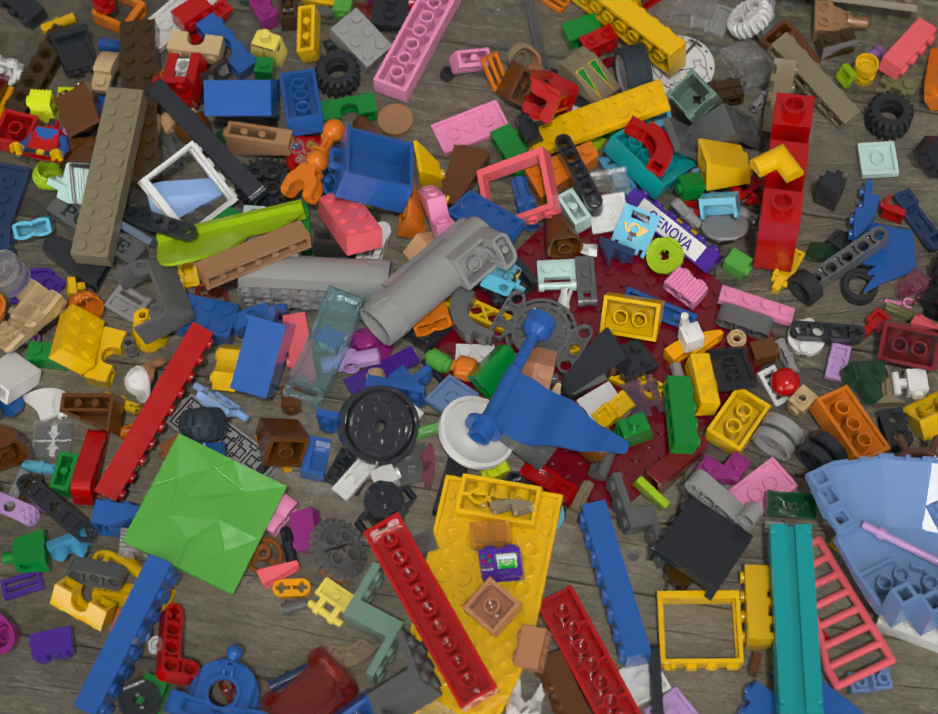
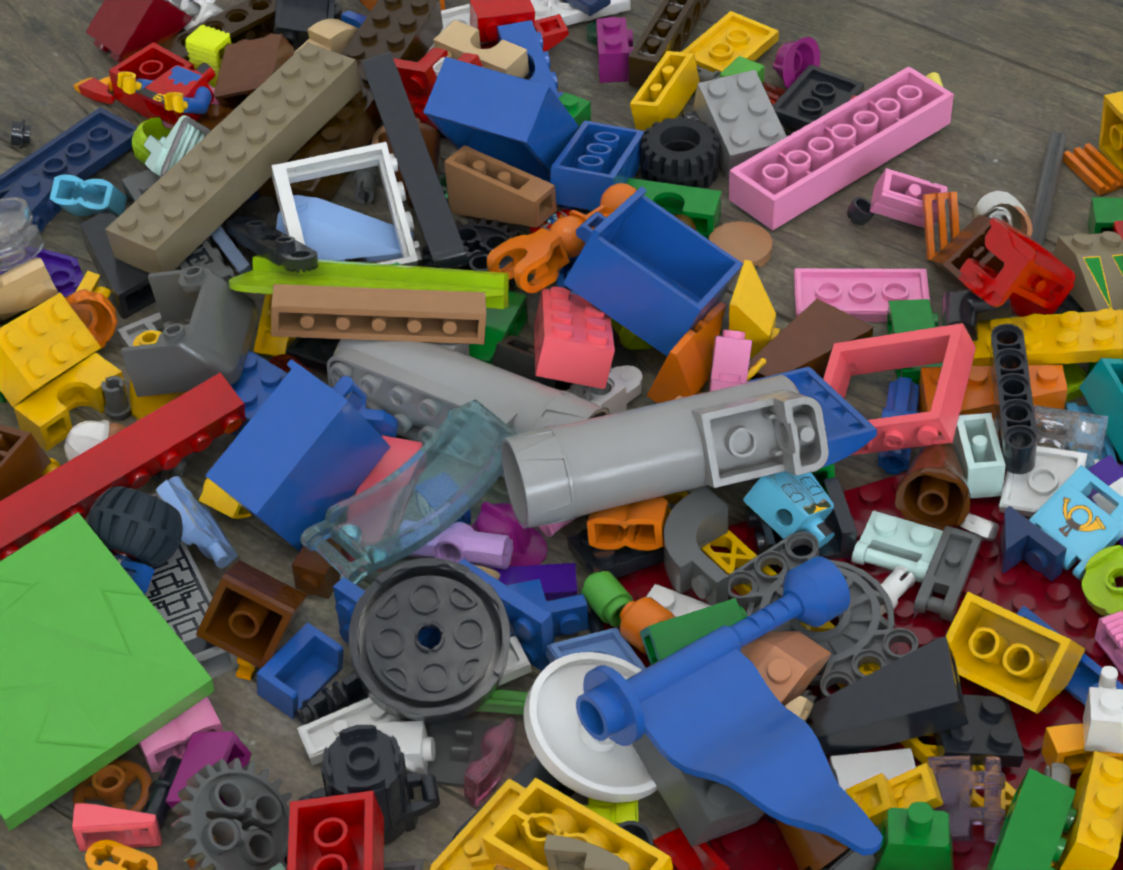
camera: 25 degrees right, 20 degrees down
(269, 45) = (595, 84): light yellow torso -> none

